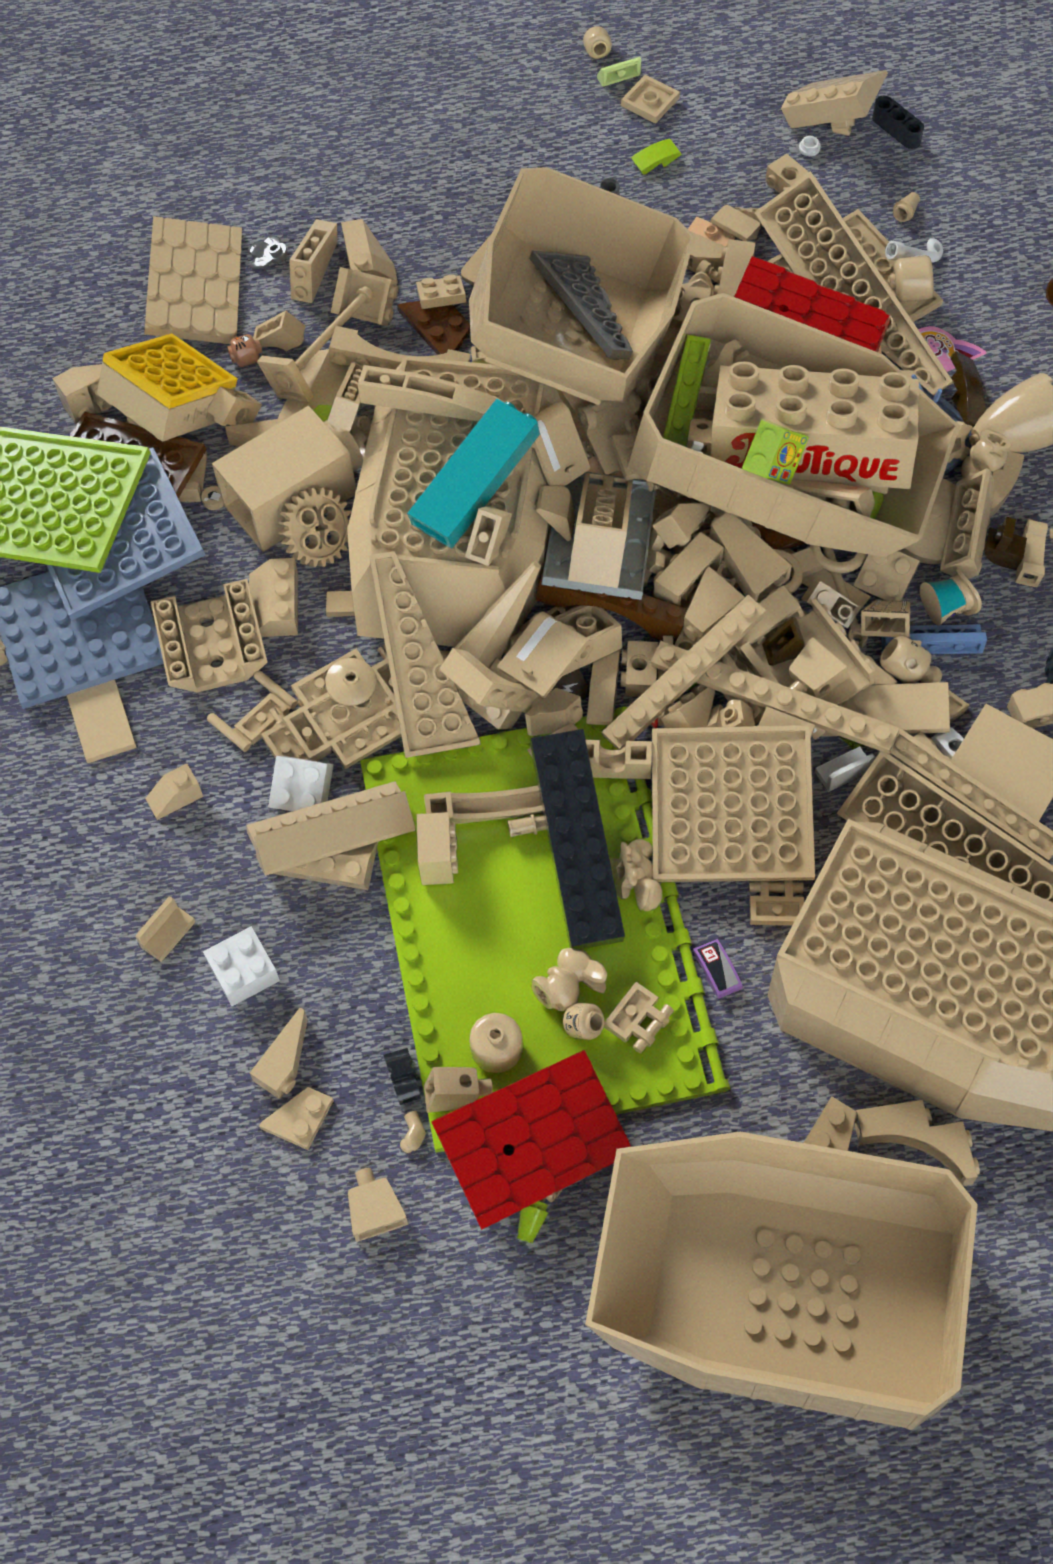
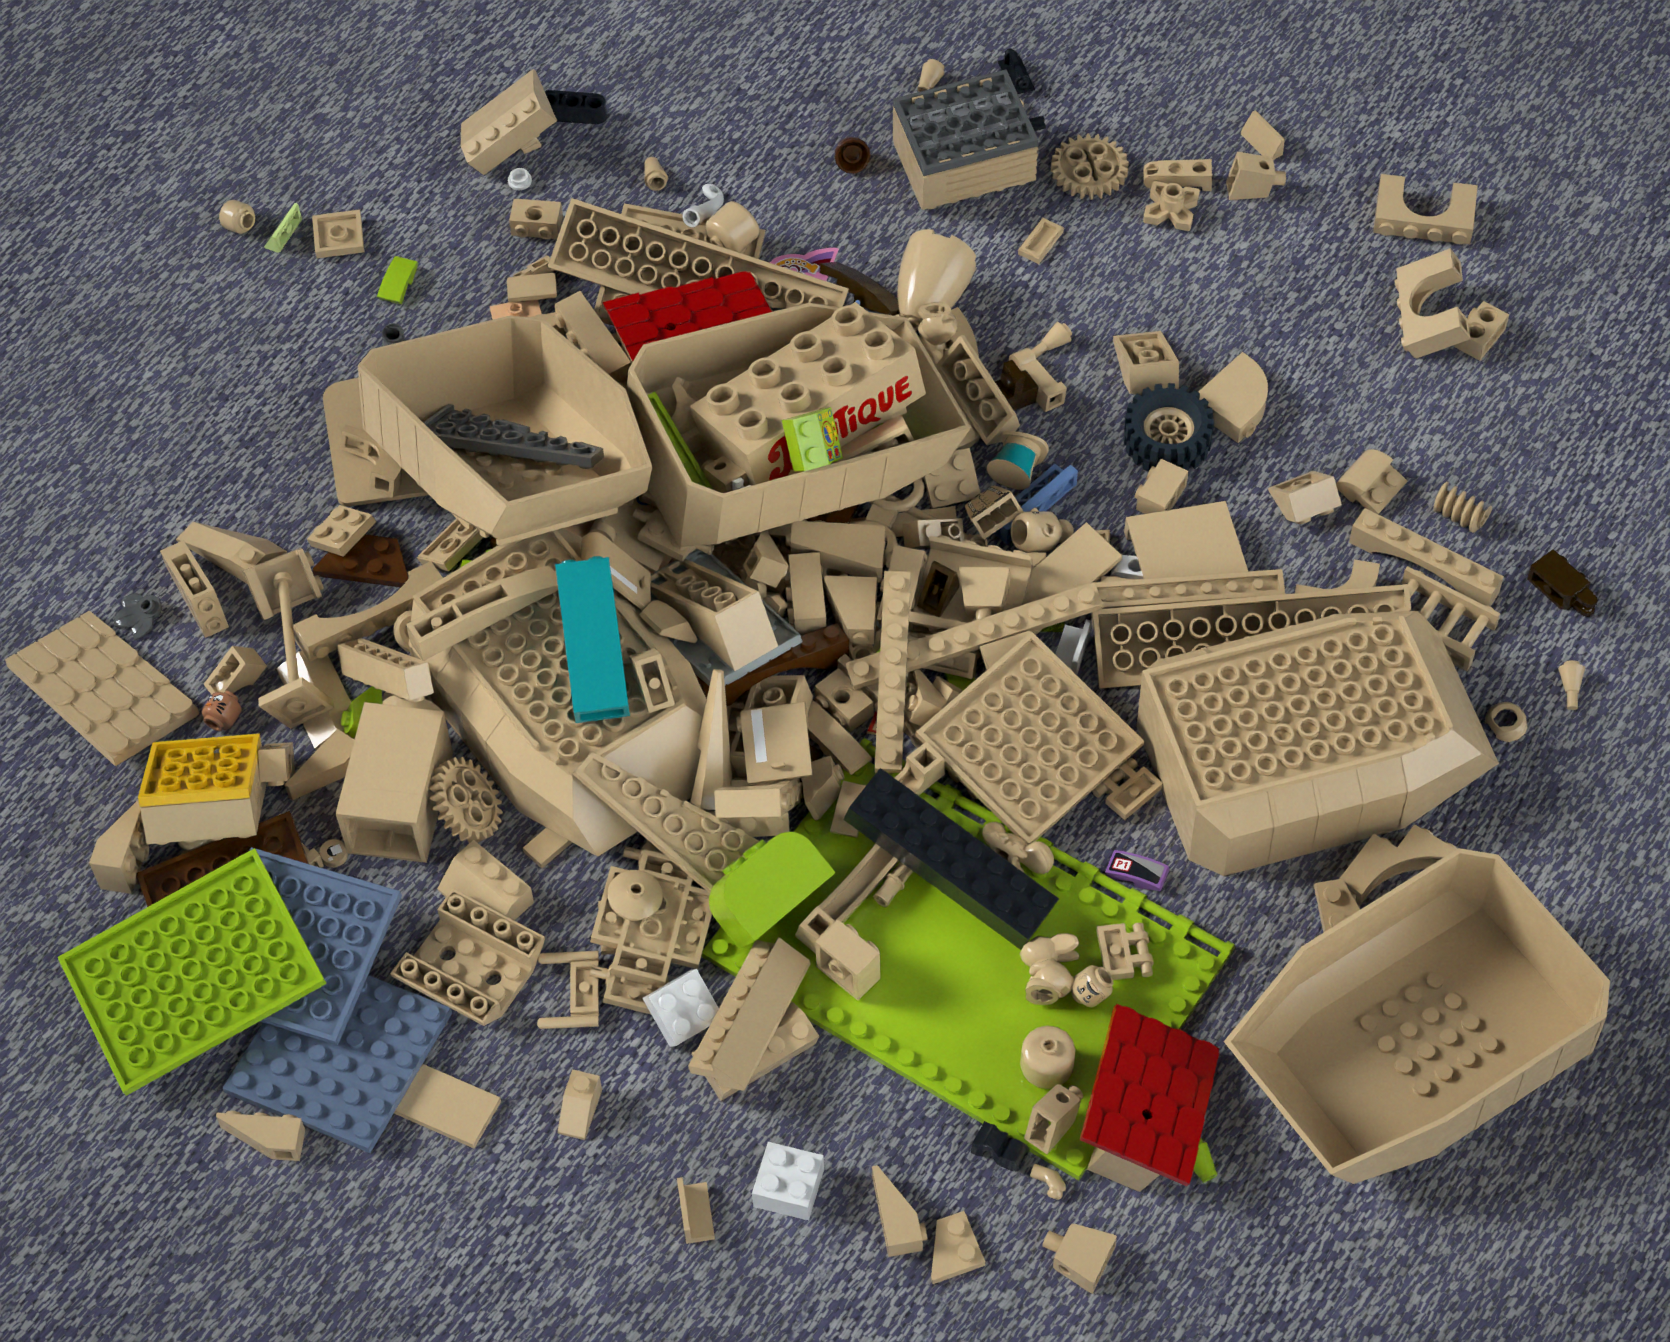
camera: 45 degrees left, 5 degrees down
(433, 747) = (766, 885): none -> lime brick
(737, 714) = (961, 673): tan brick -> none

